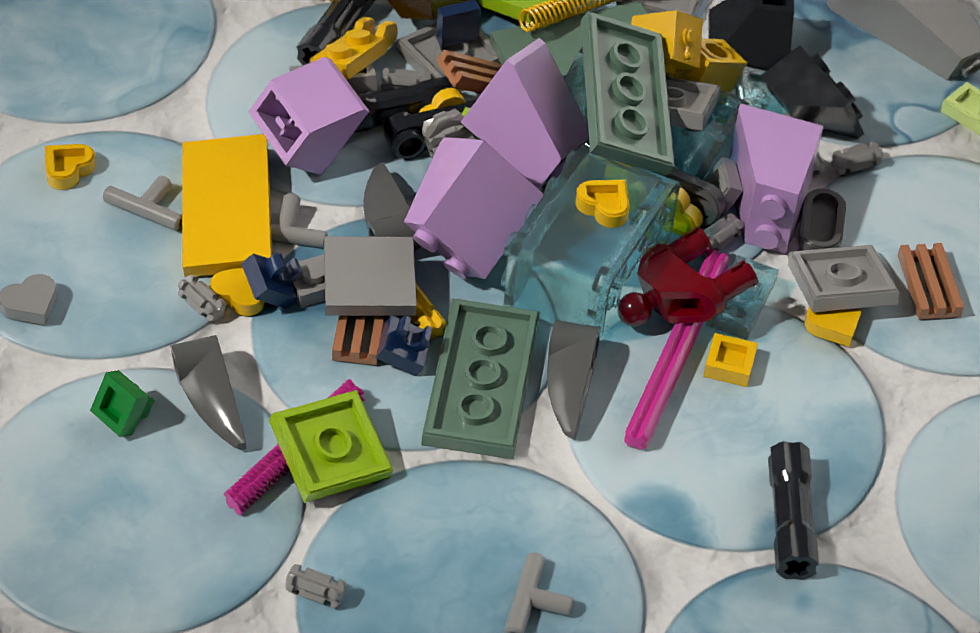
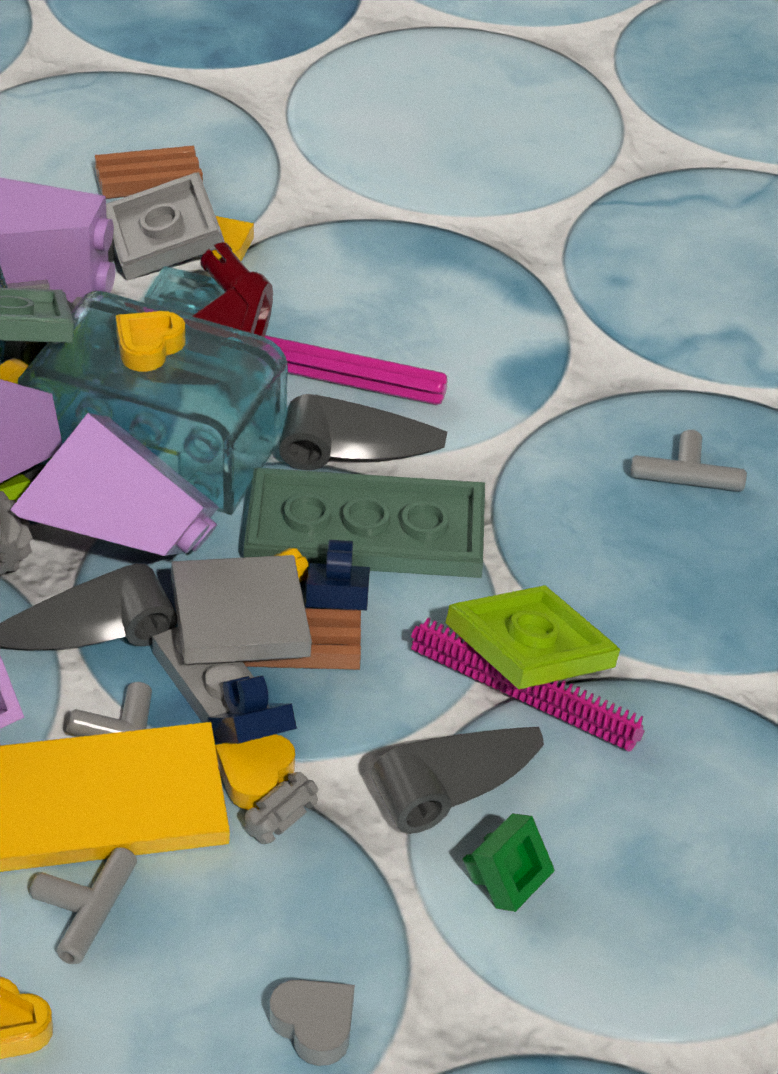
camera: 95 degrees left, 5 degrees down
(316, 585) = (738, 645): light grey piece -> none
(730, 359) = (298, 317): yellow tile -> none
(795, 535) = (556, 269): black axle -> none

